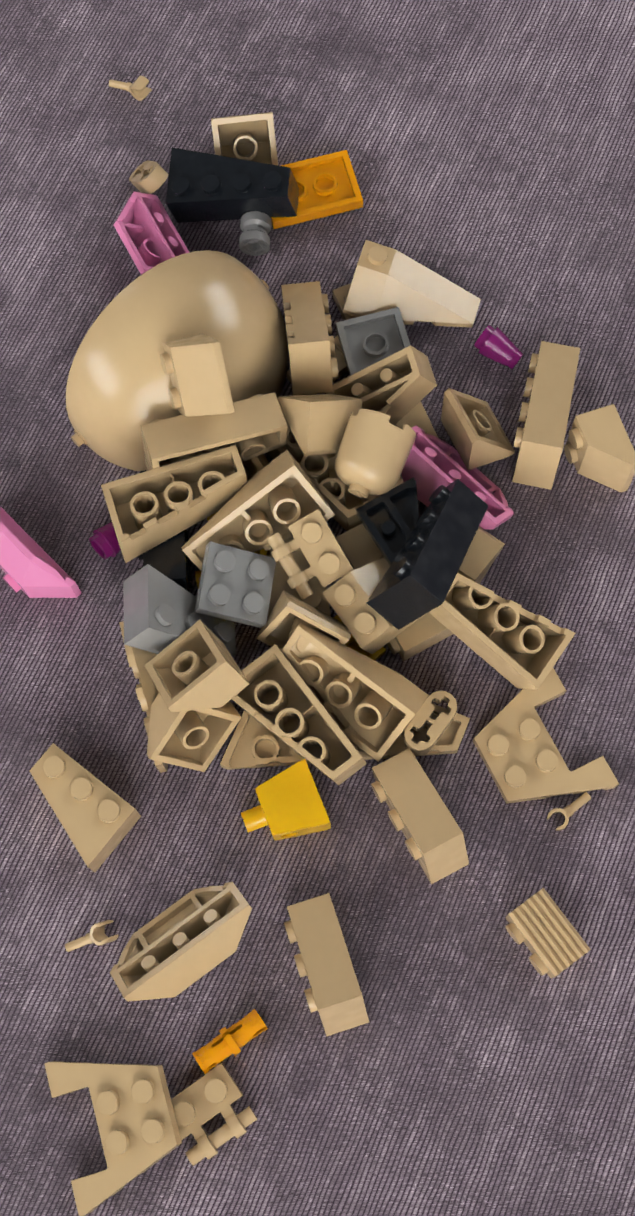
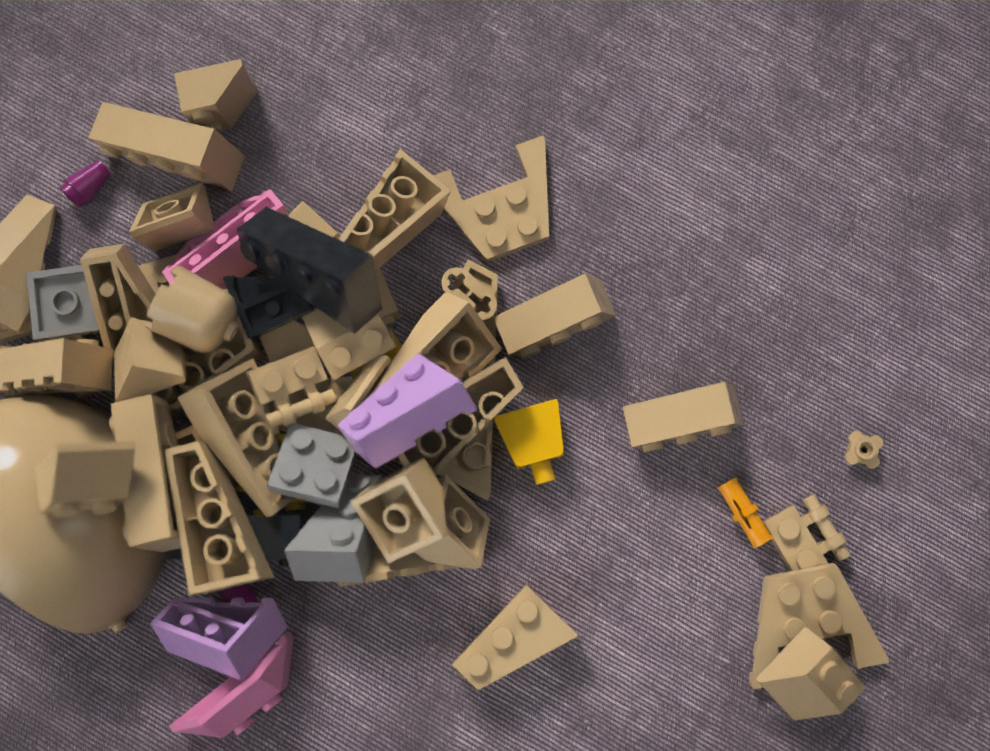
camera: 80 degrees left, 10 degrees up
(56, 1122) = (810, 679): none -> tan slope
(71, 525) = (220, 635): none -> lavender wedge
(96, 936) = (639, 633): tan hand -> none
(182, 943) = (654, 550): tan wedge -> none
(292, 657) = (403, 409): none -> lavender wedge
(303, 1166) = (856, 456): none -> tan plate
(546, 934) = (673, 217): tan brick -> none
(569, 810) = (562, 184): tan hand -> none

